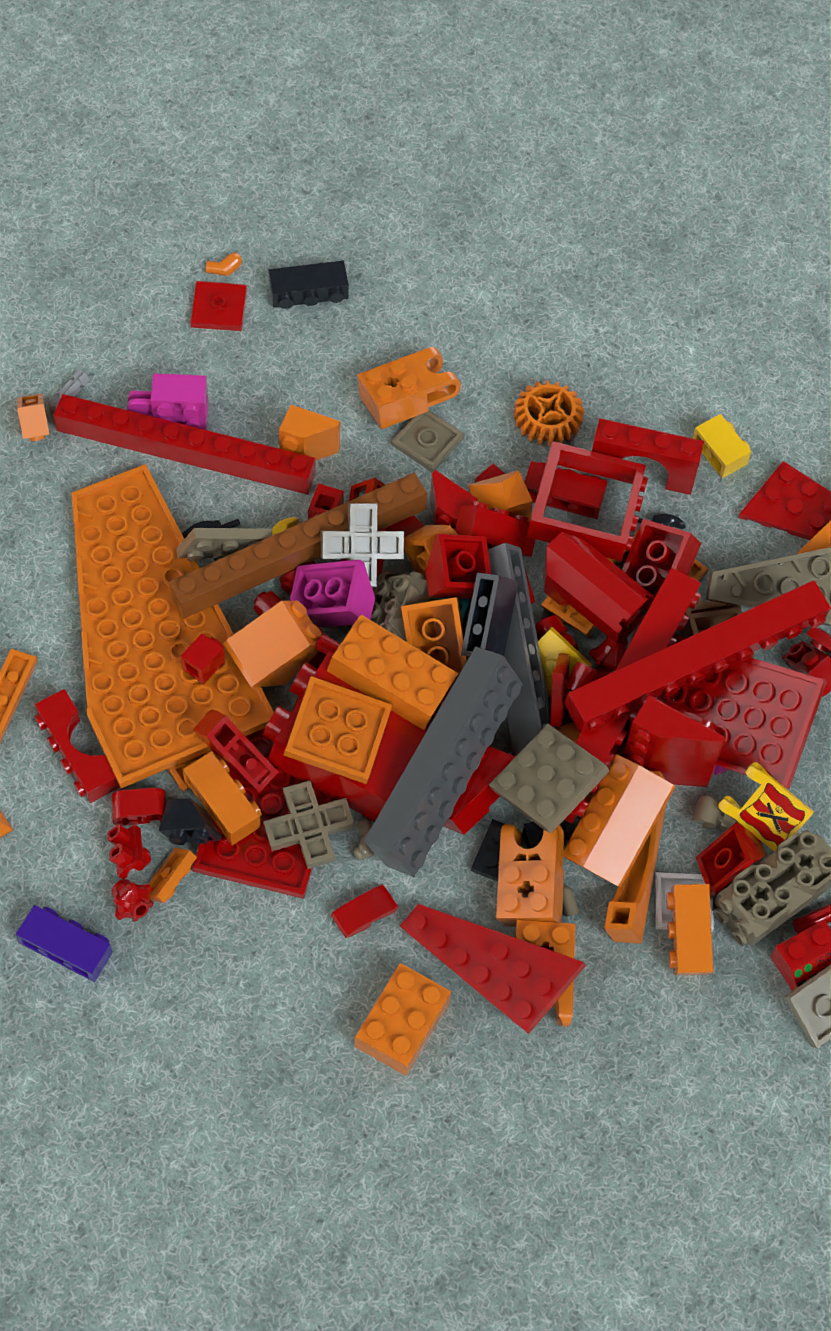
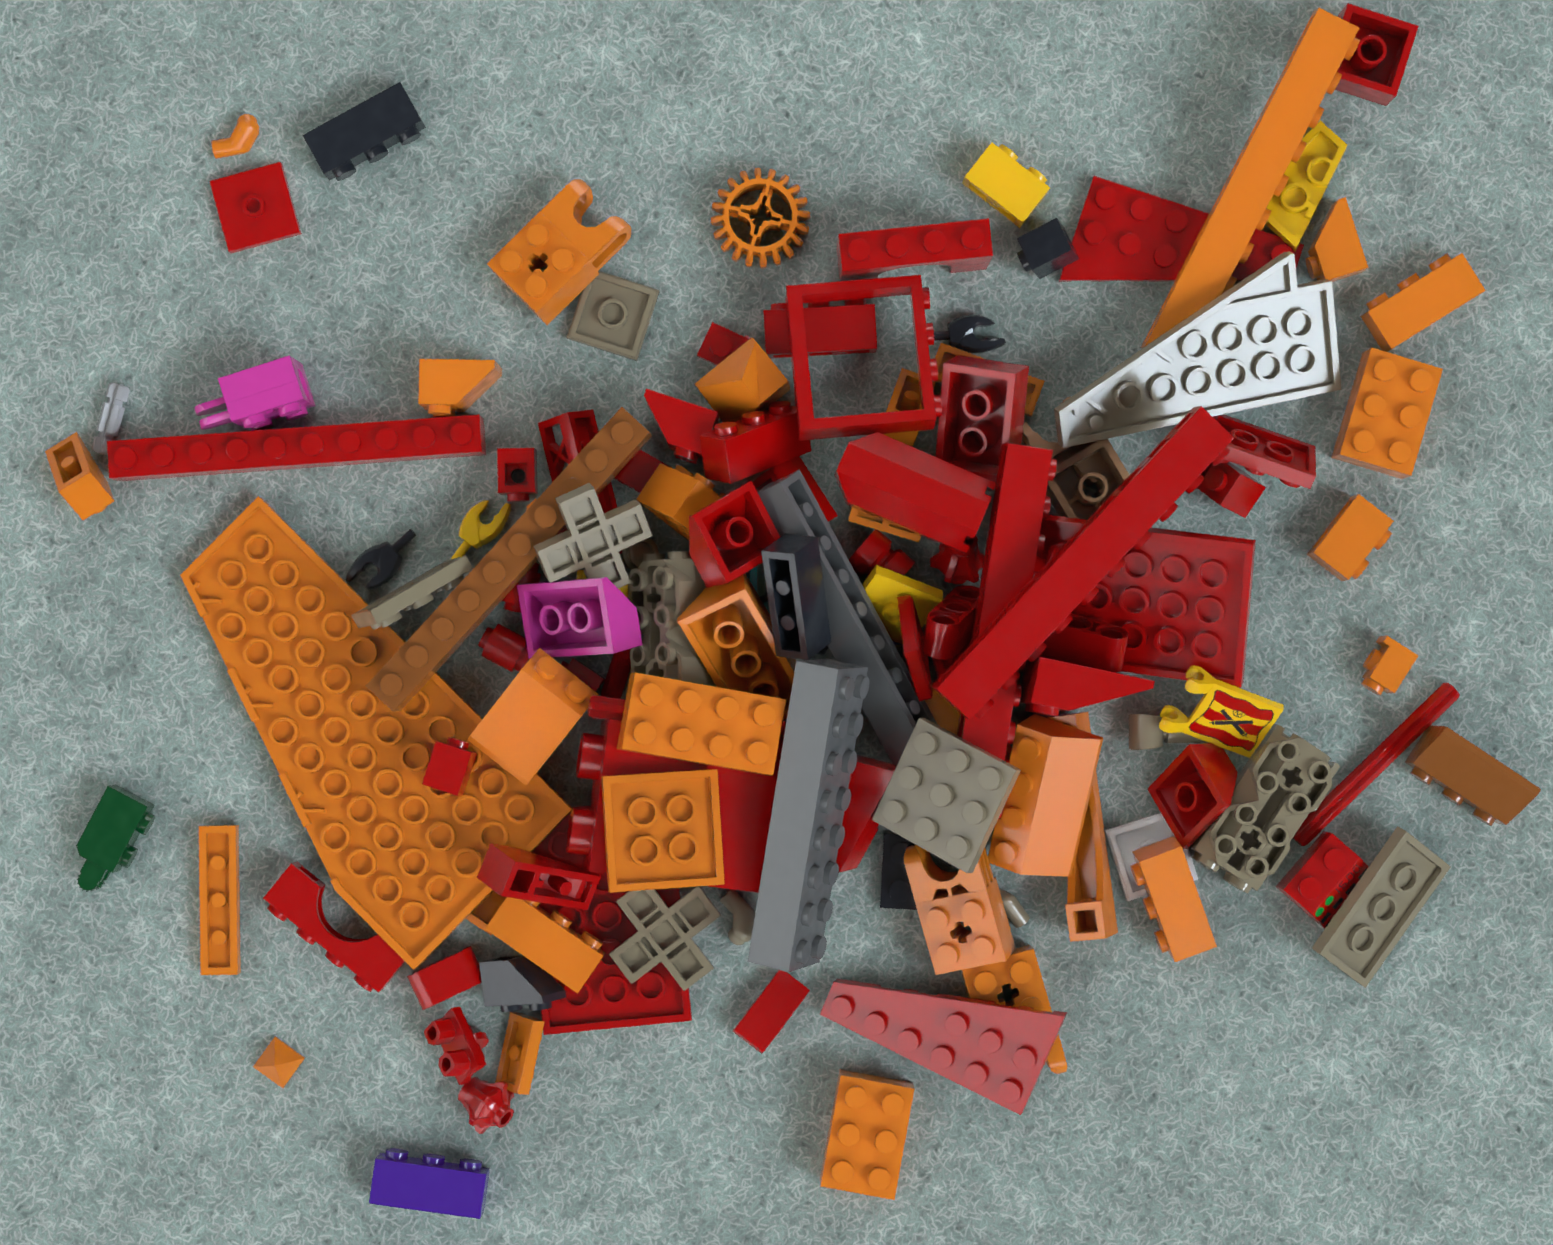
camera: 15 degrees left, 25 degrees up
(736, 489) = (1046, 249): none -> black brick

